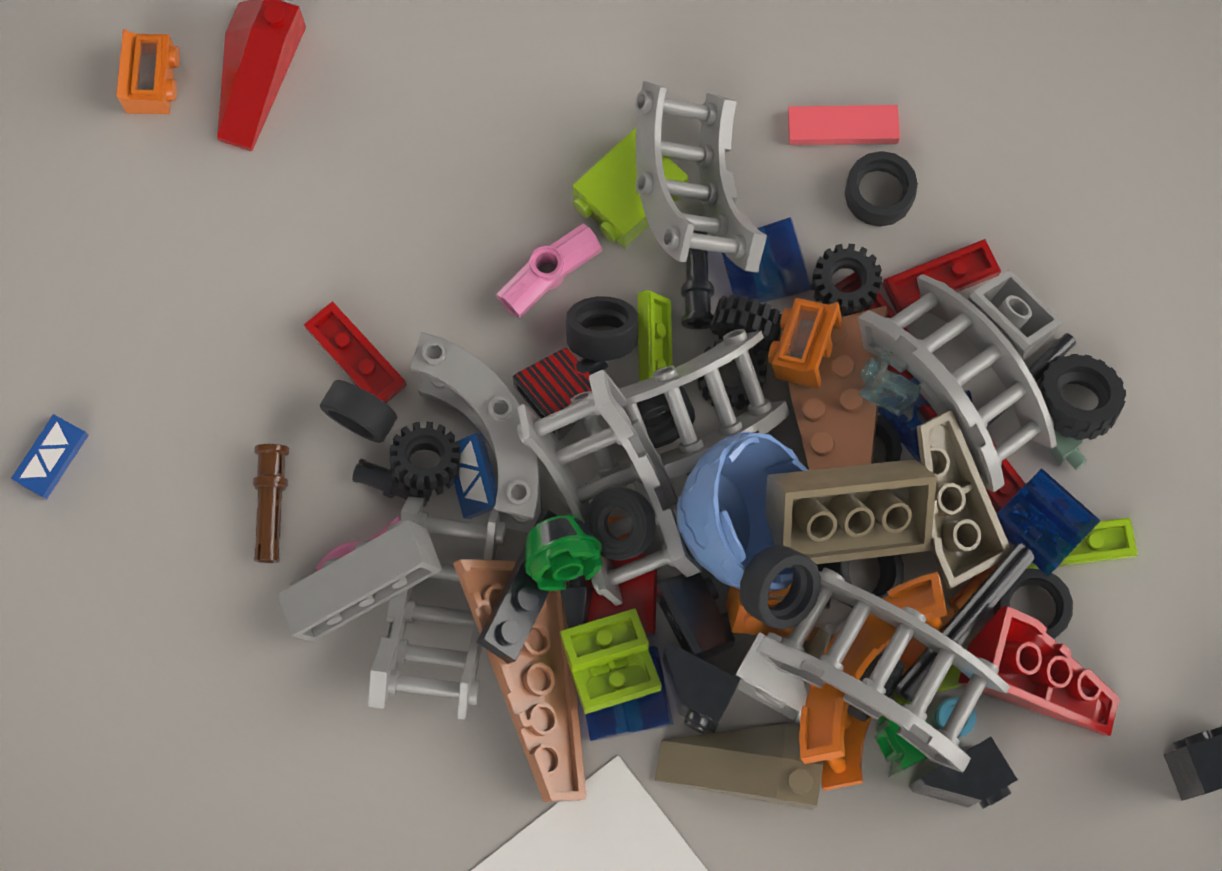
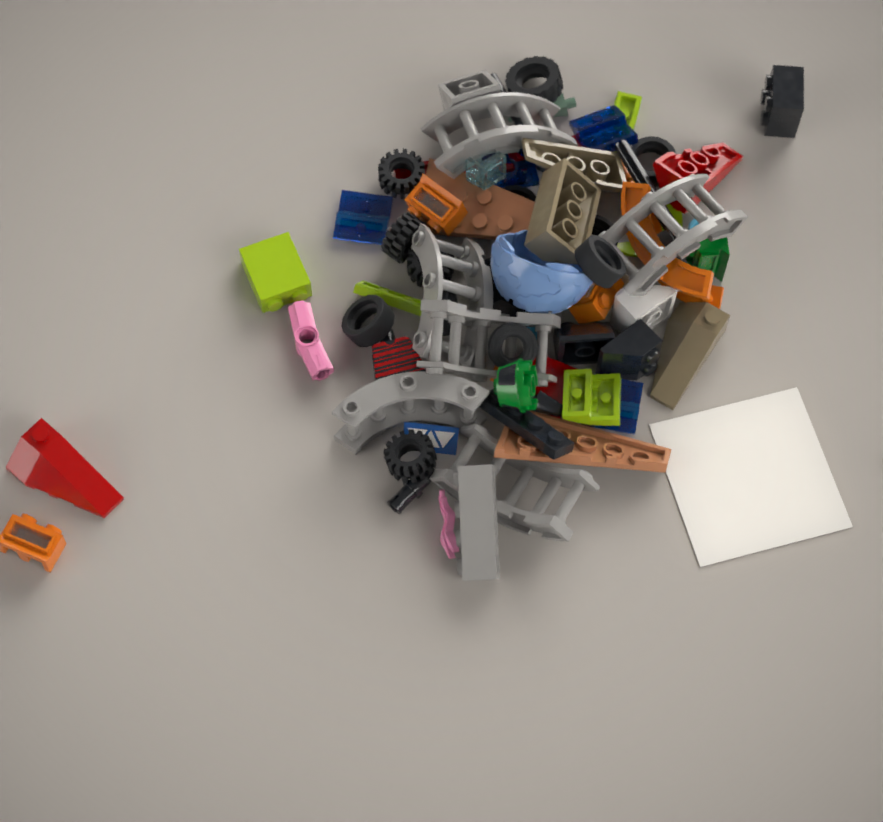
camera: 70 degrees left, 10 degrees down
(49, 456) = (291, 706): blue tile -> none
(270, 484) = (379, 565): reddish brown pin -> none
(354, 353) = (311, 480): red plate -> none
(358, 411) = (357, 486): black tyre -> none
(697, 290) = (362, 260): black pin -> none
(730, 230) = (314, 233): light grey fence -> none
(843, 125) = (291, 139): coral tile -> none
(888, 163) = (343, 118): black tyre -> none
(956, 269) = (418, 114): red tile -> none
(982, 781) = (747, 236): black slope -> none

